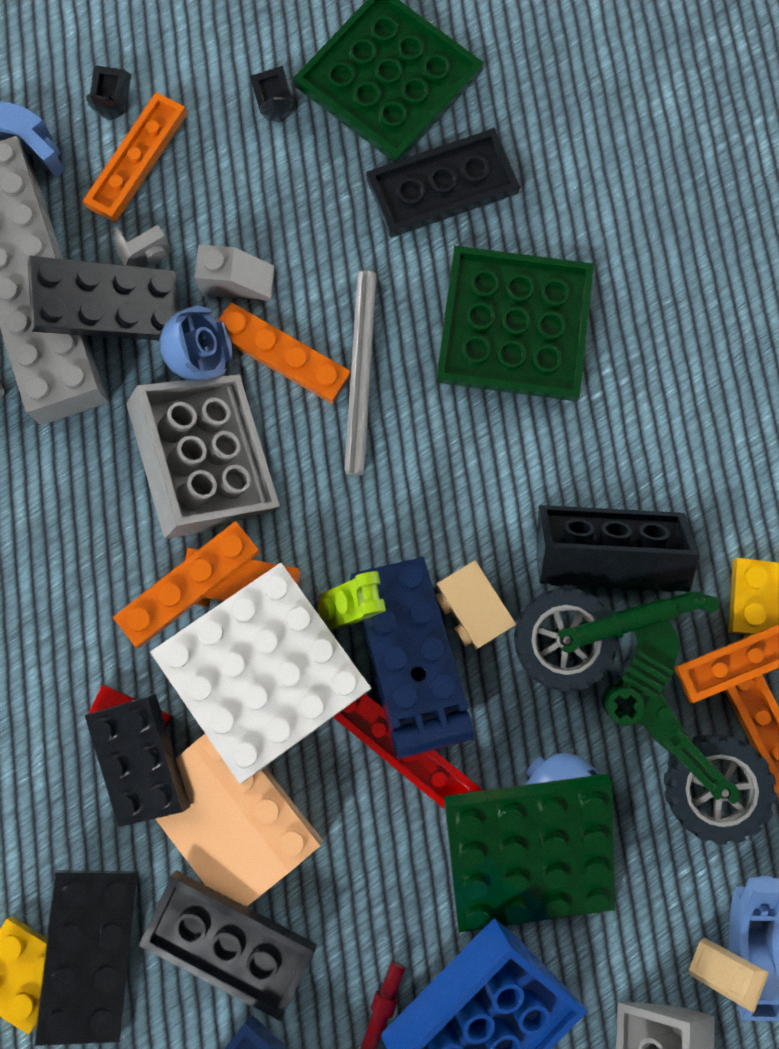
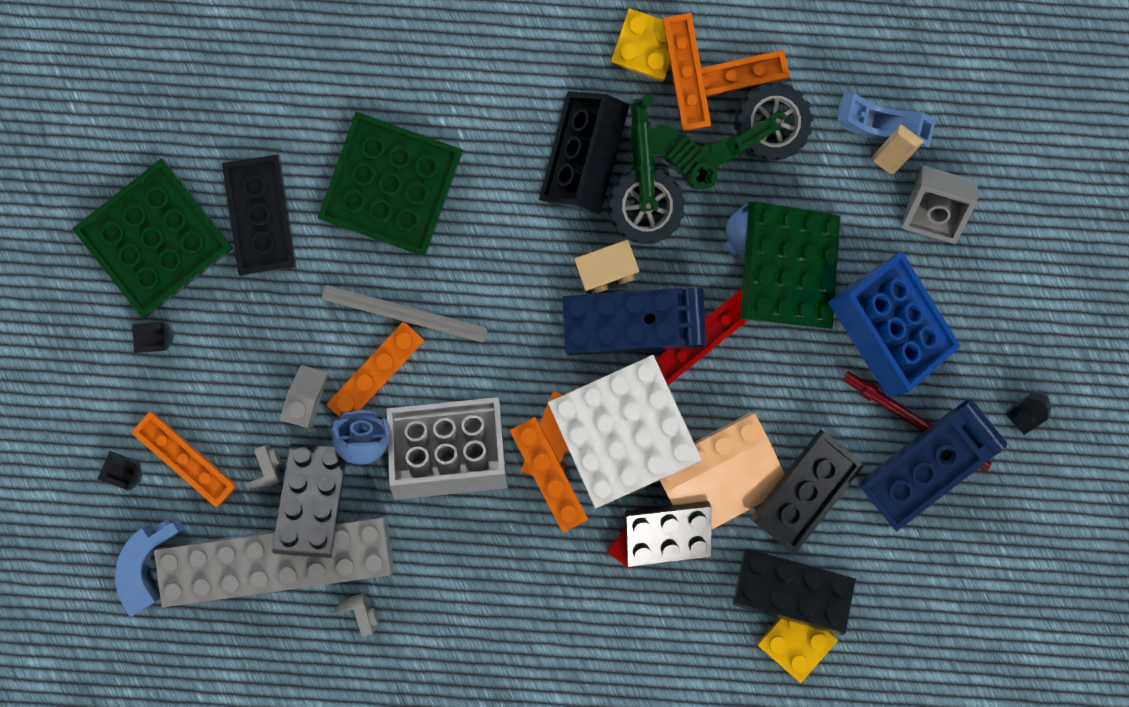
camera: 75 degrees left, 10 degrees up
(351, 601) = (587, 357): lime plate -> none

